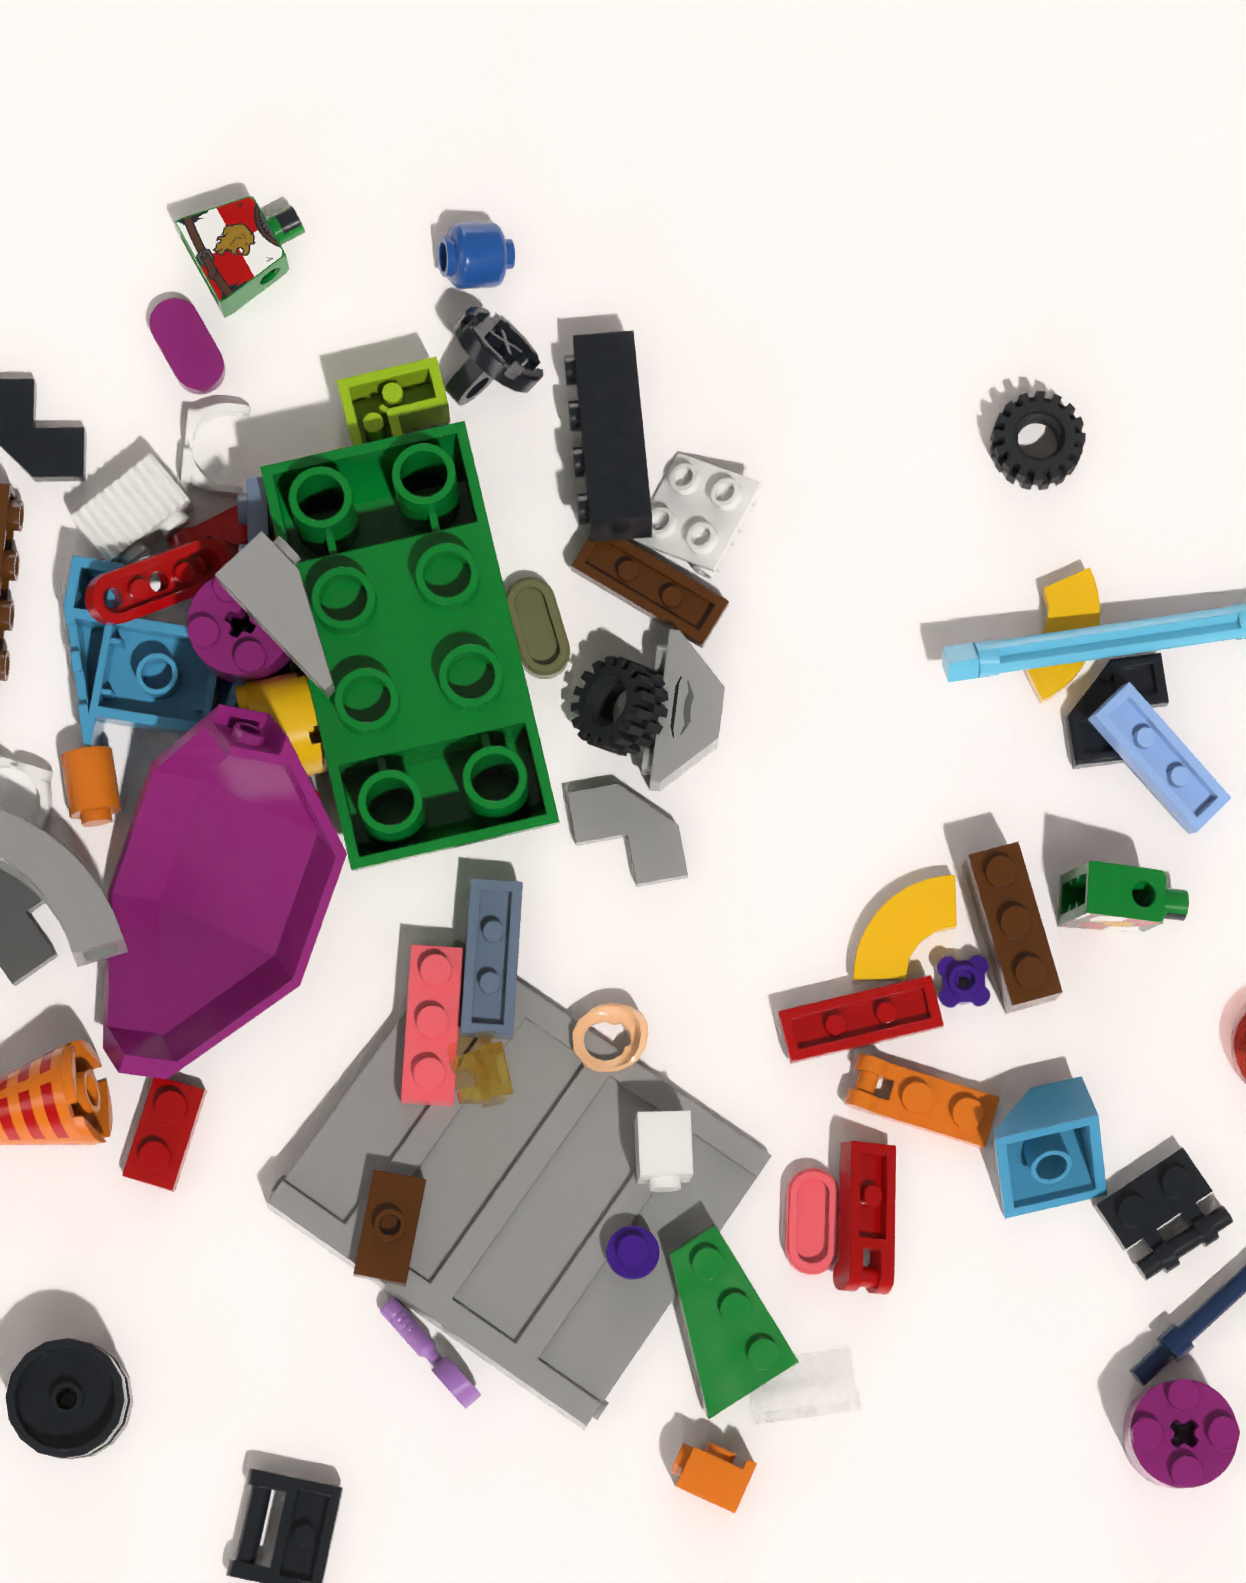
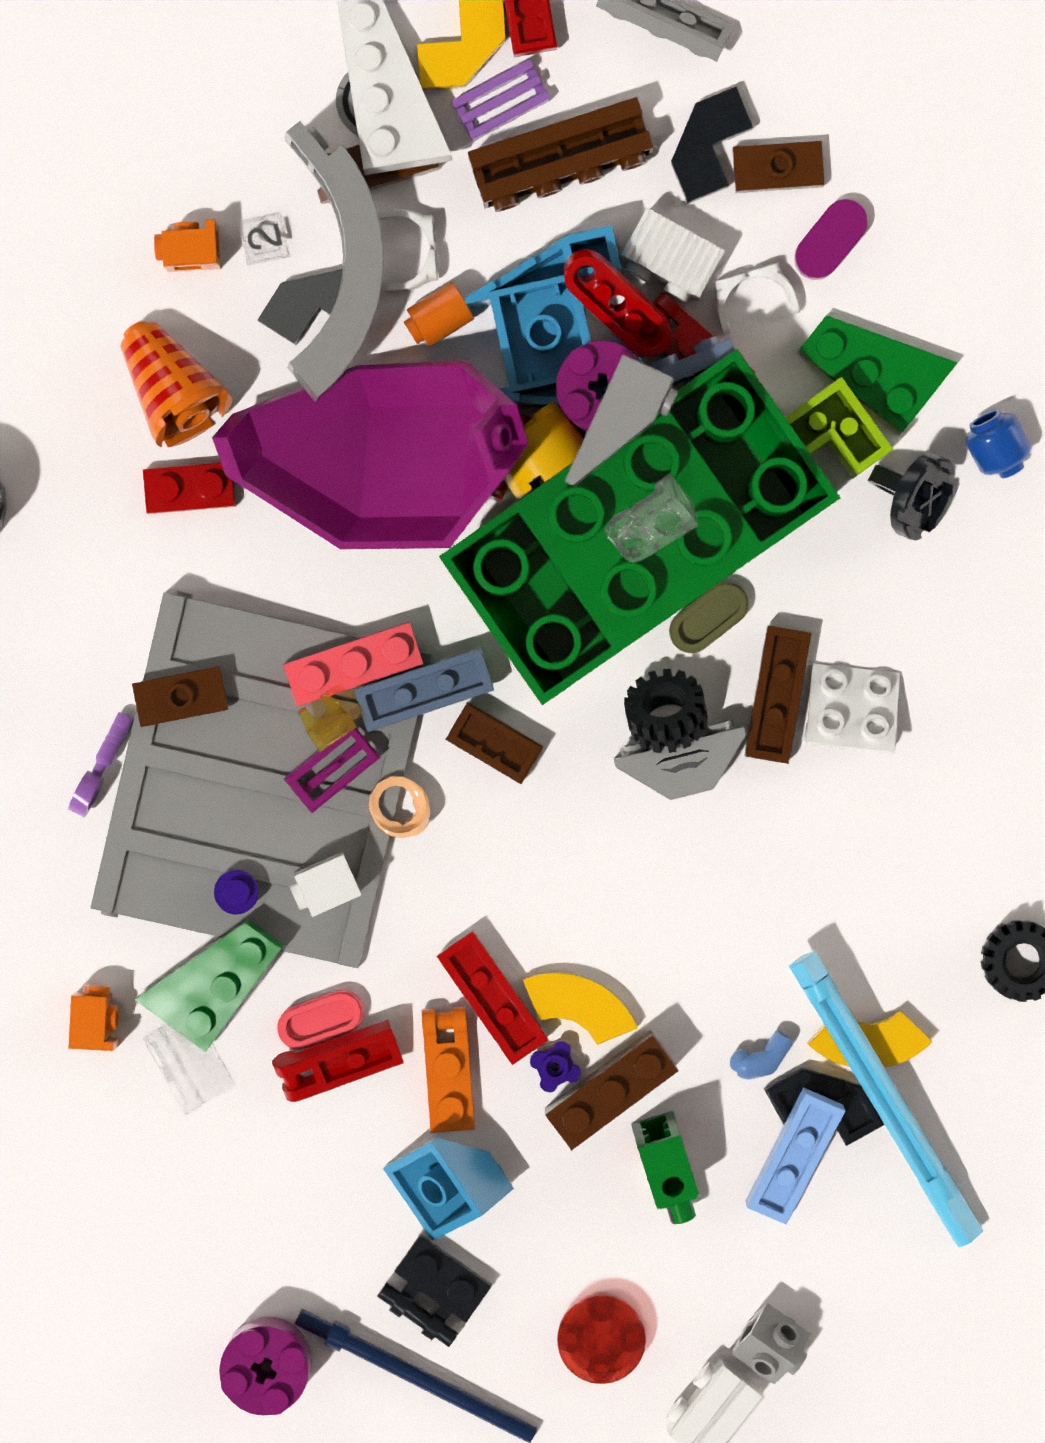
camera: 70 degrees right, 10 degrees up
(87, 370) = (778, 166): none -> reddish brown plate
(238, 249) = (927, 248): torso -> none
(352, 339) = (880, 371): none -> green wing
(408, 621) = (652, 521): none -> clear leg
(550, 1136) = (302, 792): none -> magenta tile
(580, 908) = (494, 742): none -> reddish brown plate
(611, 436) = (886, 616): black brick -> none
(617, 813) = (583, 742): light grey tile -> none
(1043, 757) = (763, 1062): none -> medium blue arm

